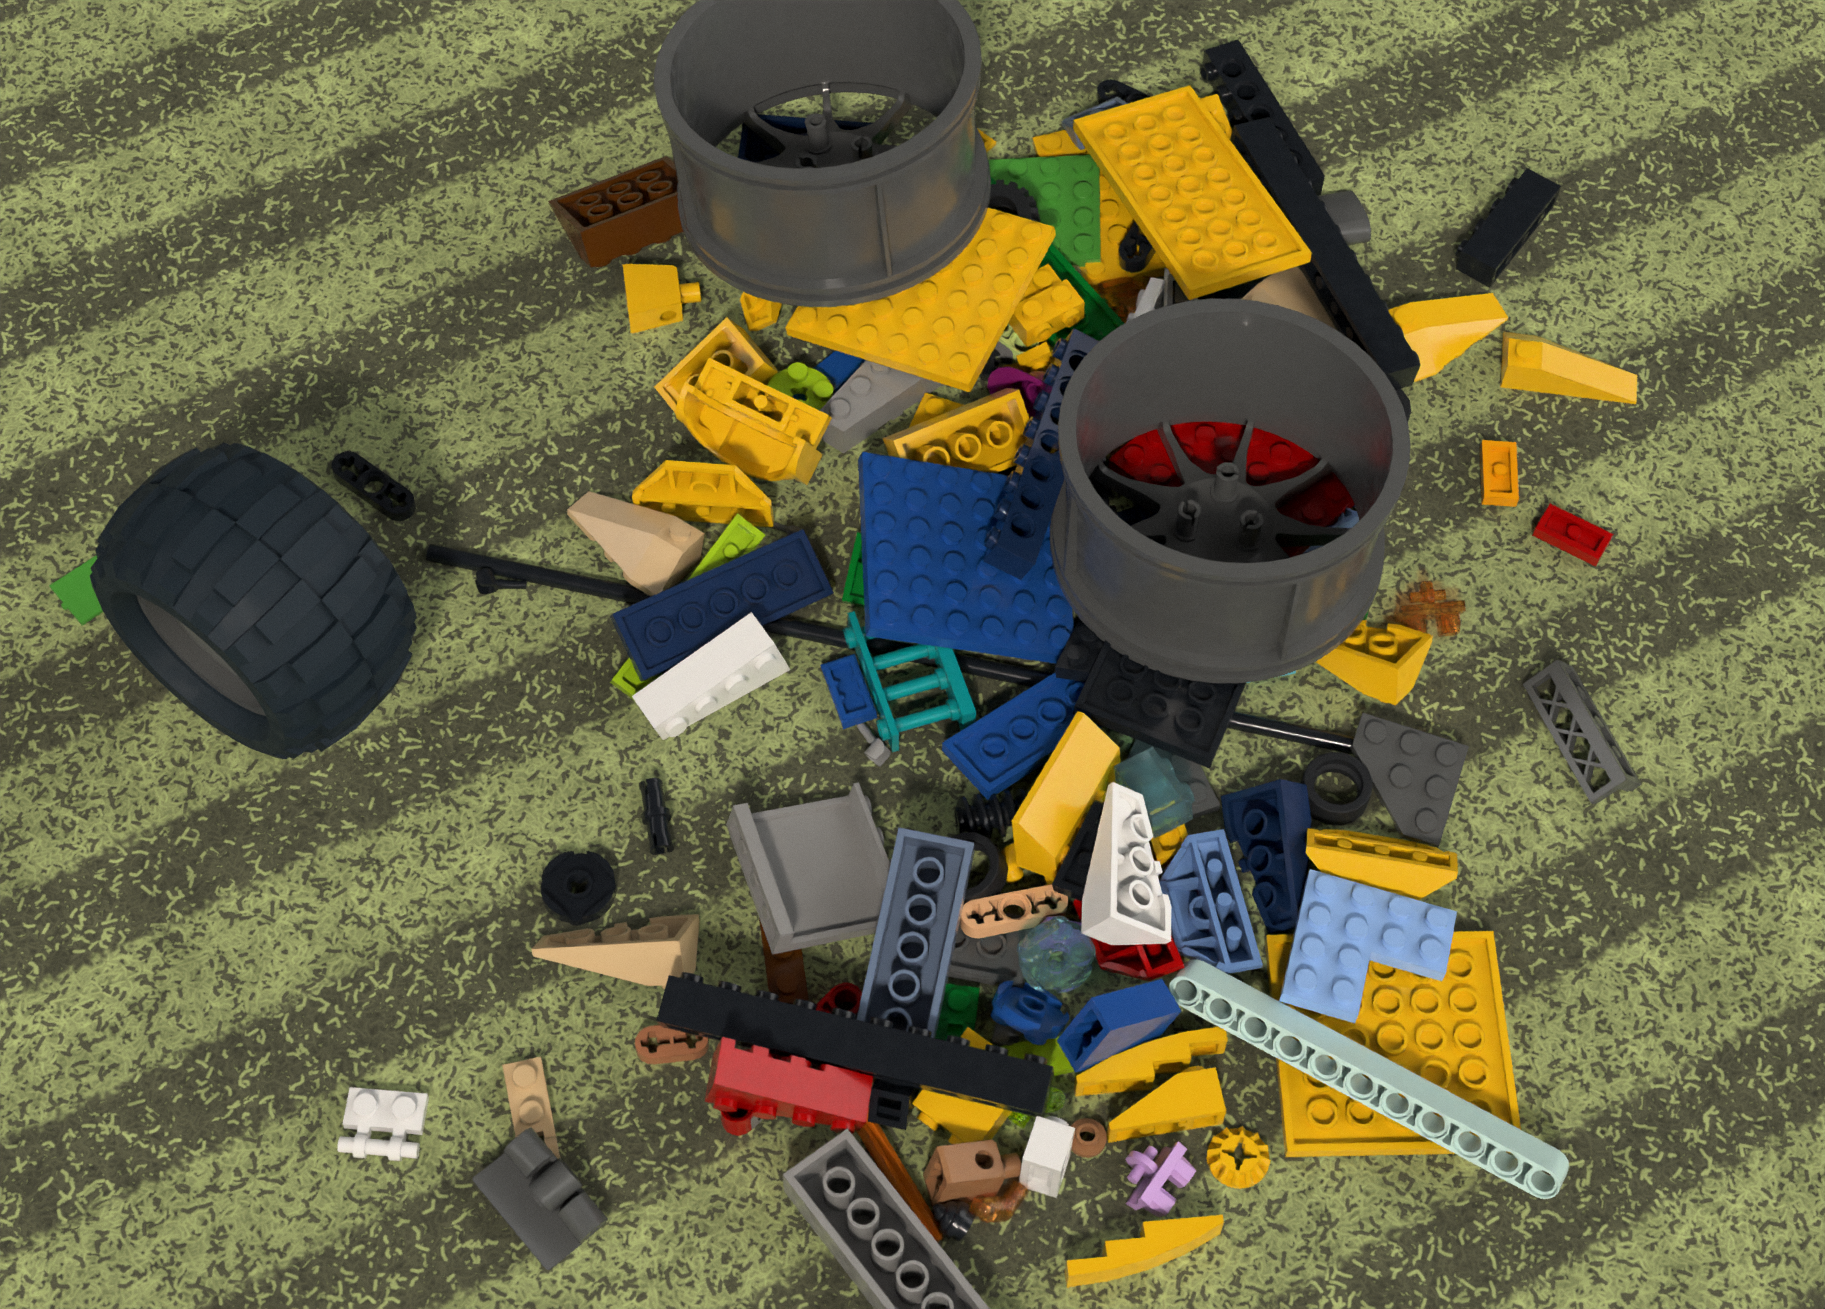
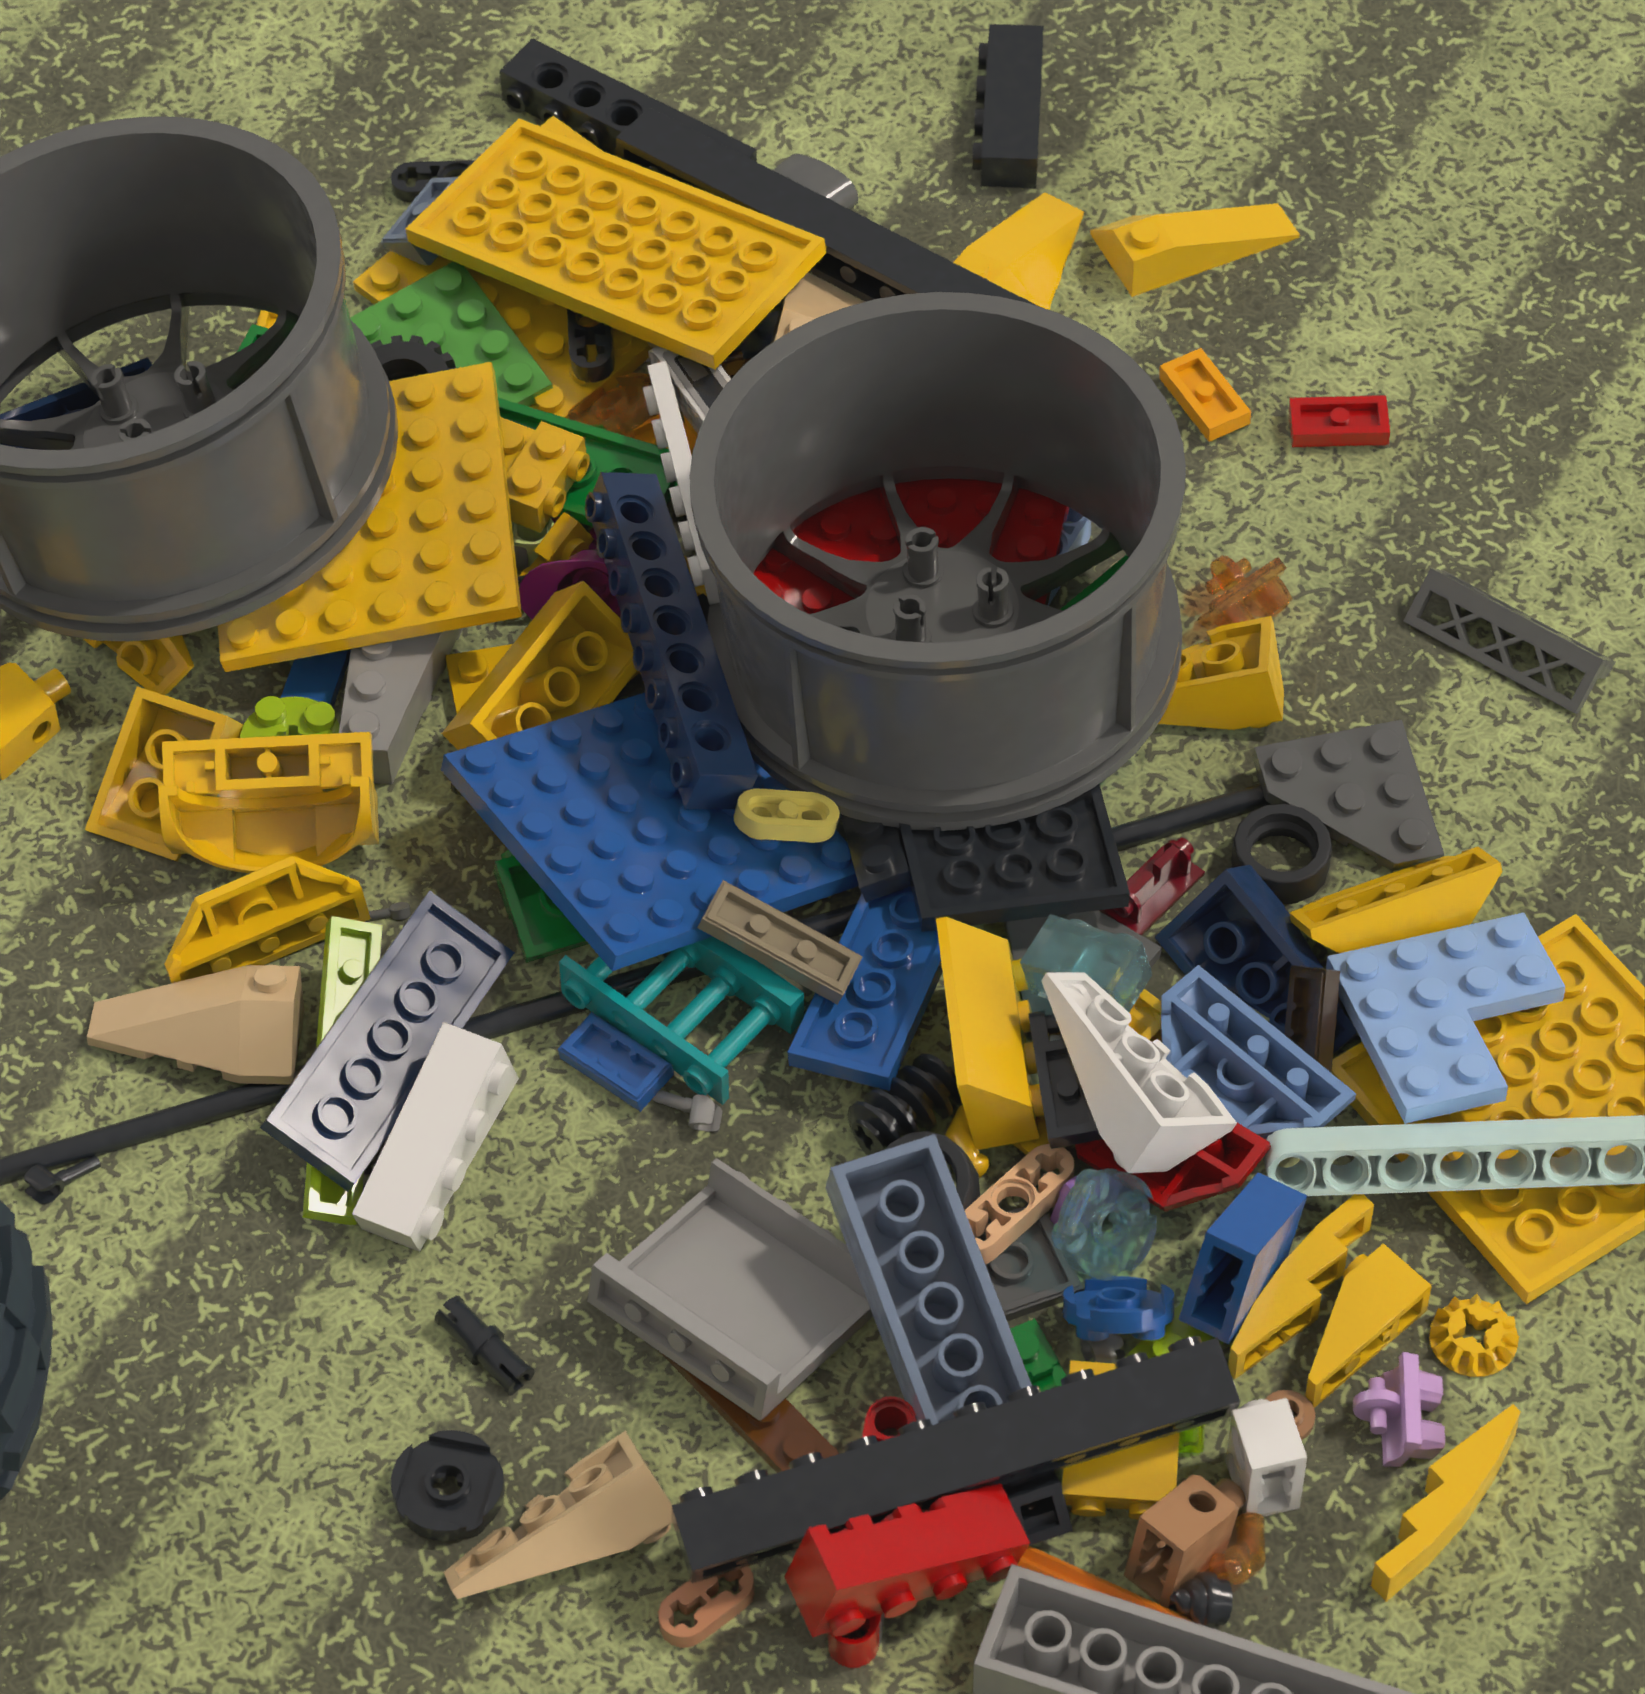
camera: 30 degrees left, 5 degrees down
(979, 673) = (780, 942): none -> dark tan tile
(1040, 598) = (786, 815): none -> light yellow plate
(1244, 766) = (1158, 886): none -> dark red hinge
(1273, 901) = (1313, 1011): none -> dark brown plate

